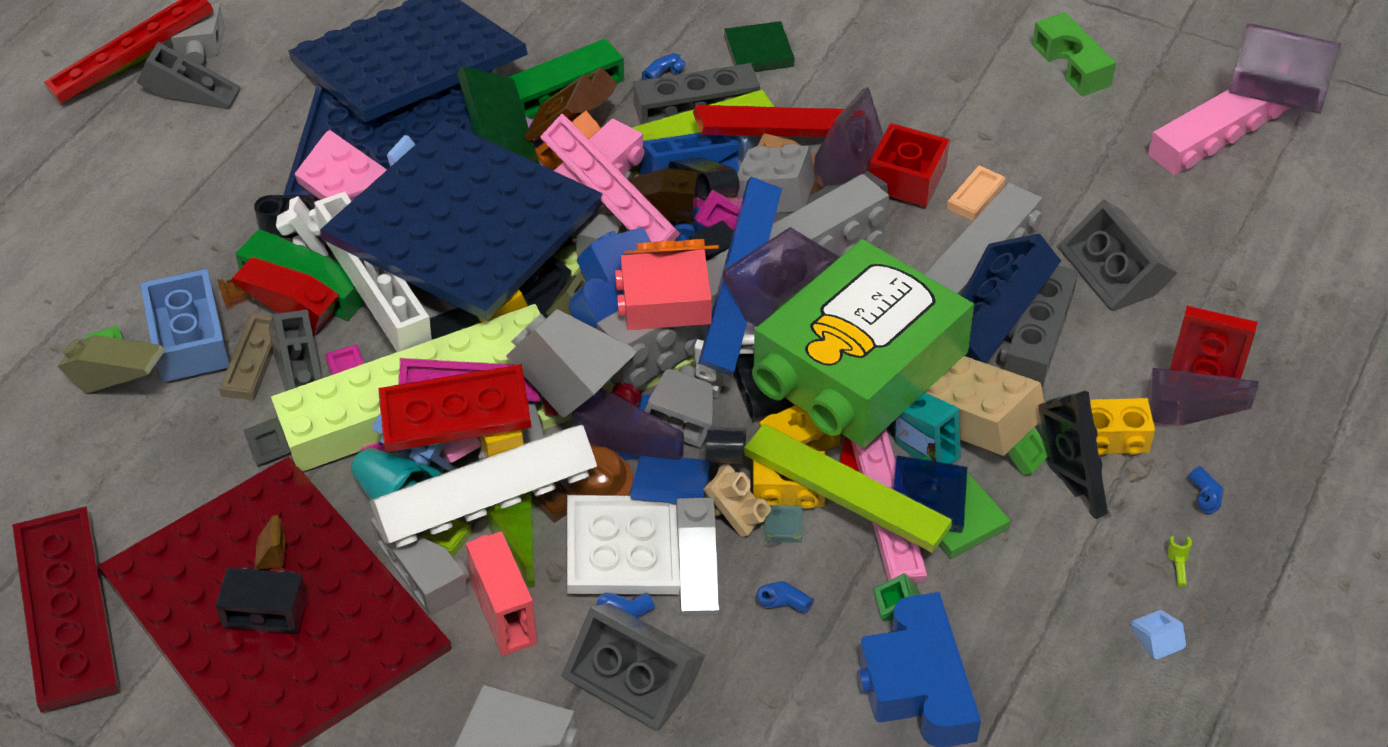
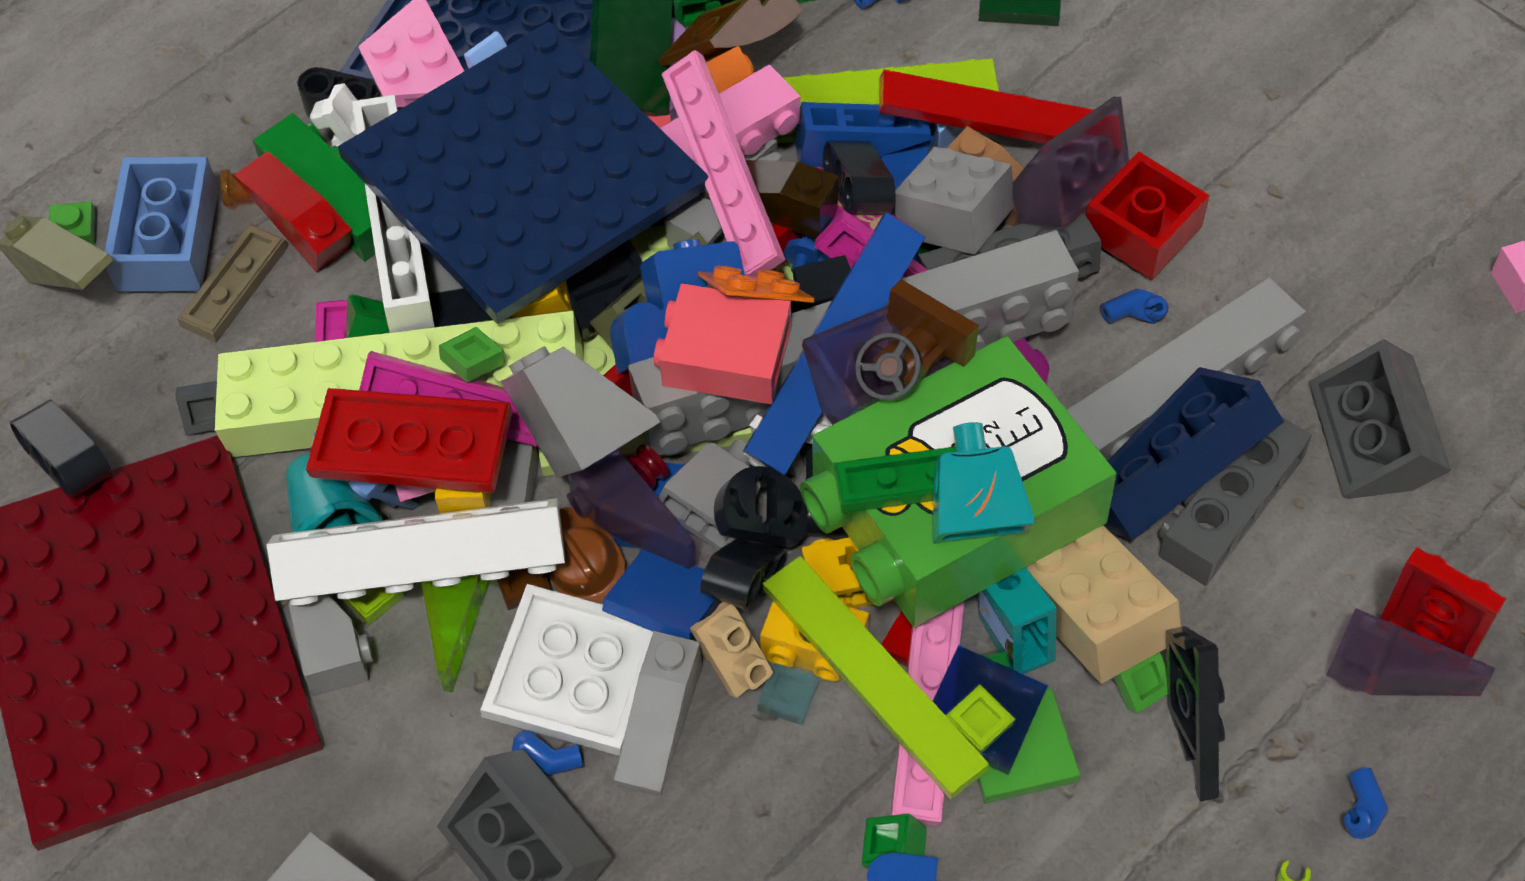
camera: 20 degrees right, 10 degrees up
(166, 492) = (61, 448): none -> black beam
(261, 600) = (112, 628): black brick -> none
(271, 545) = (153, 556): pearl gold slope -> none
(294, 348) = (277, 295): dark grey slope -> none
(368, 351) = (365, 317): none -> green slope
(475, 344) = (471, 354): none -> bright green plate
(501, 593) = (393, 699): coral brick -> none
(682, 92) = (903, 38): dark grey brick -> none
(737, 406) = (736, 508): none -> black piece
(784, 594) = (749, 795): blue arm -> none
(808, 248) = (926, 336): none -> reddish brown piece
(836, 338) = (887, 480): none -> green tile
(891, 329) = (978, 490): none -> teal torso
(923, 223) = (1136, 304): none -> blue arm
(933, 494) = (980, 718): none -> lime tile
(976, 193) = (1228, 275): light nougat tile -> none
(1088, 64) = (1457, 122): bright green arch -> none
(1123, 425) = (1273, 664): yellow brick -> none

